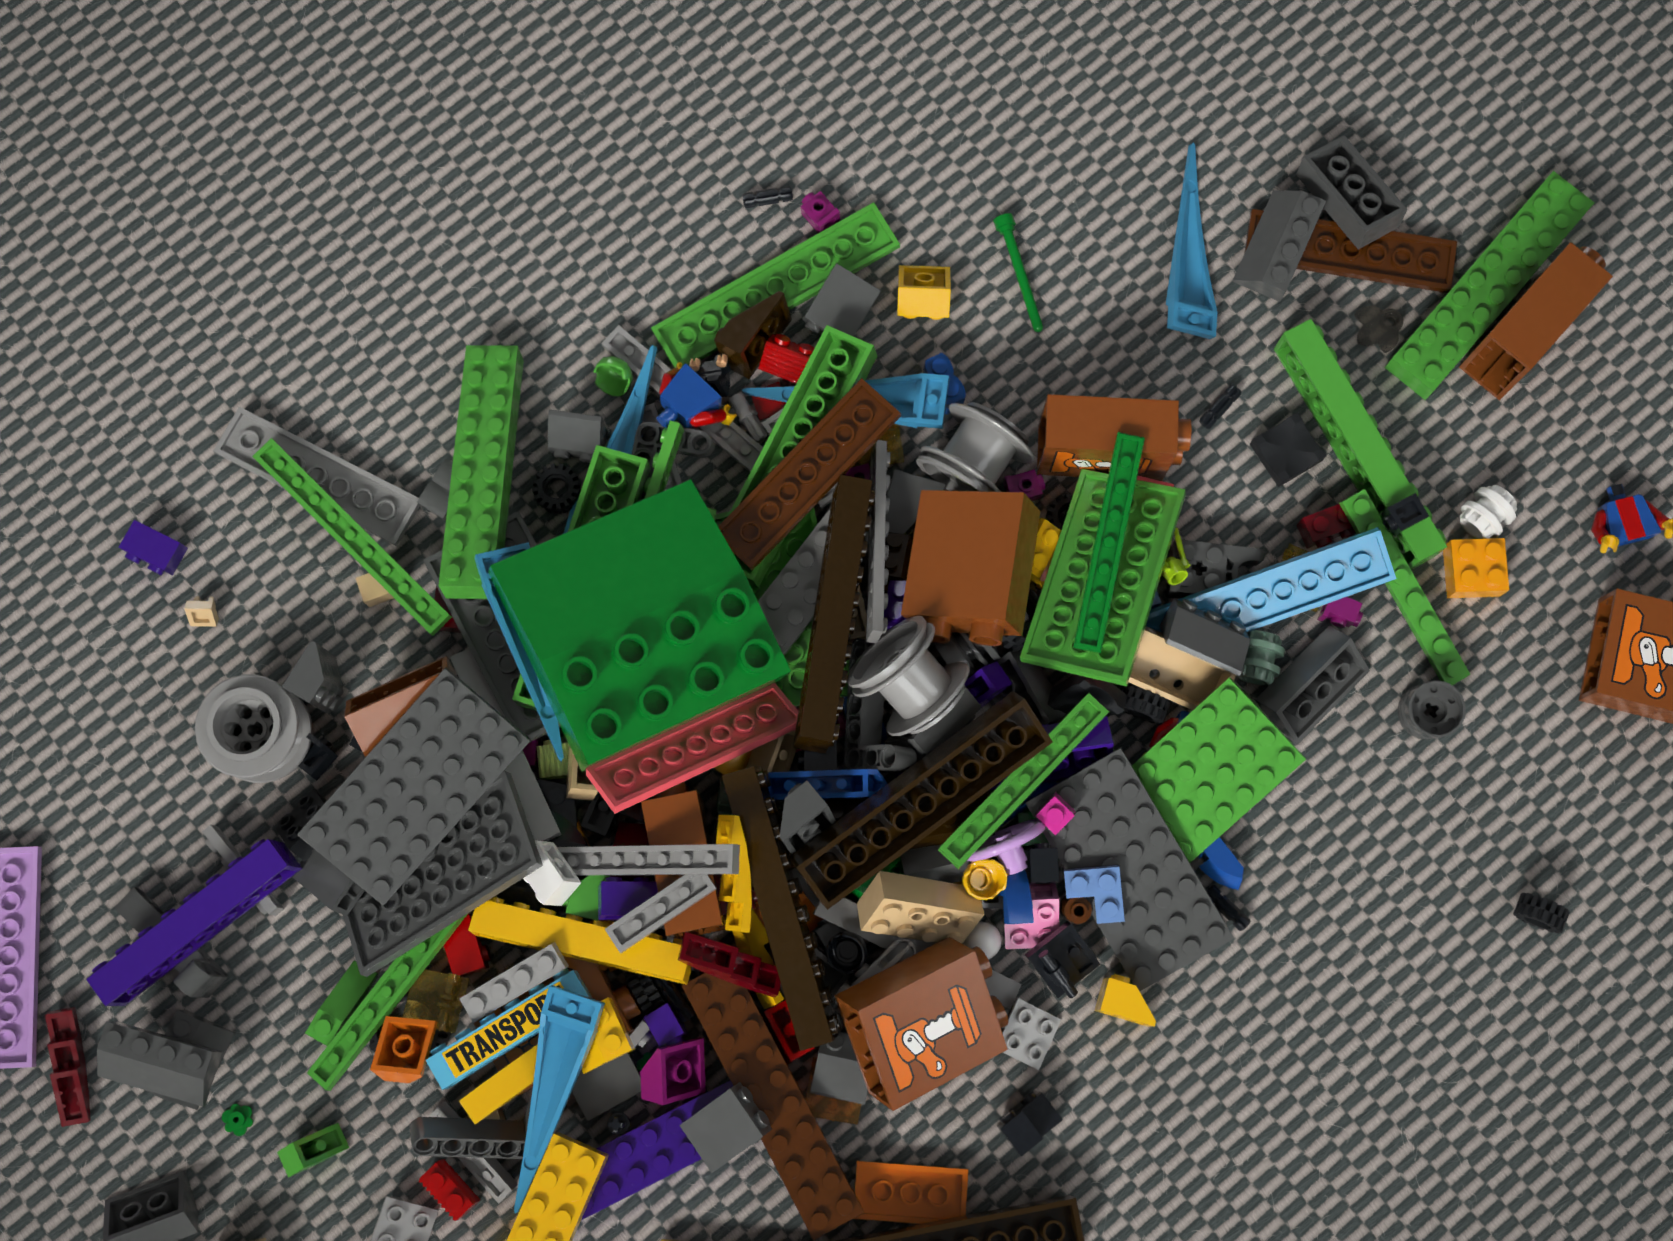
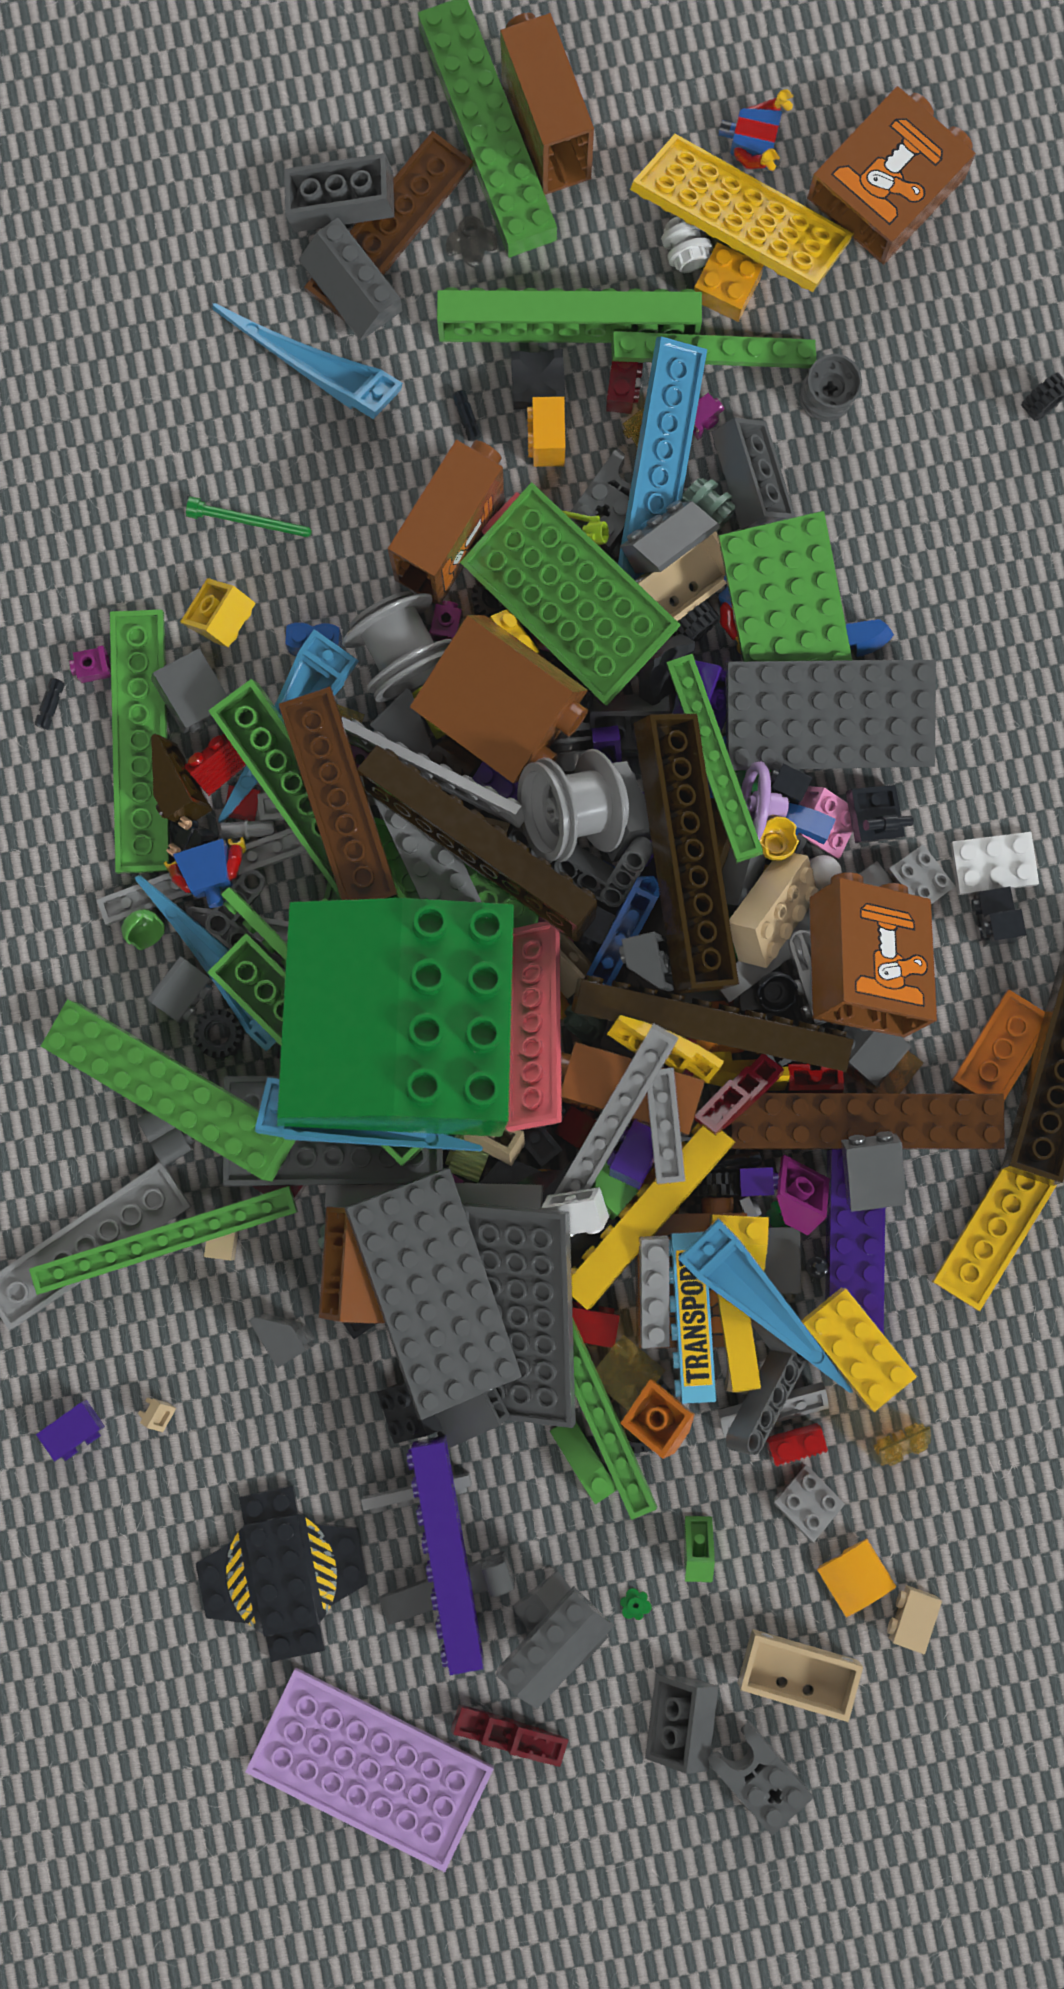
camera: 65 degrees left, 5 degrees up
(117, 792) = (282, 1573): none -> black plate
(273, 752) = (265, 1435): light grey wheel -> none
(318, 757) = (350, 1373): black bracket -> none
(1055, 813) = (754, 747): dark pink brick -> none
(1079, 1095) = (994, 863): none -> white plate
(1082, 915) = (838, 778): reddish brown brick -> none
(1103, 884) = (833, 743): medium blue plate -> none
(1108, 542) = (548, 568): green tile -> none
(1123, 1001) = (937, 781): yellow slope -> none
(1228, 908) = (905, 652): black axle -> none
(1243, 482) = (546, 431): none -> light orange brick
(1404, 515) = (655, 311): black bracket -> none
(1545, 546) = (742, 212): none -> yellow plate

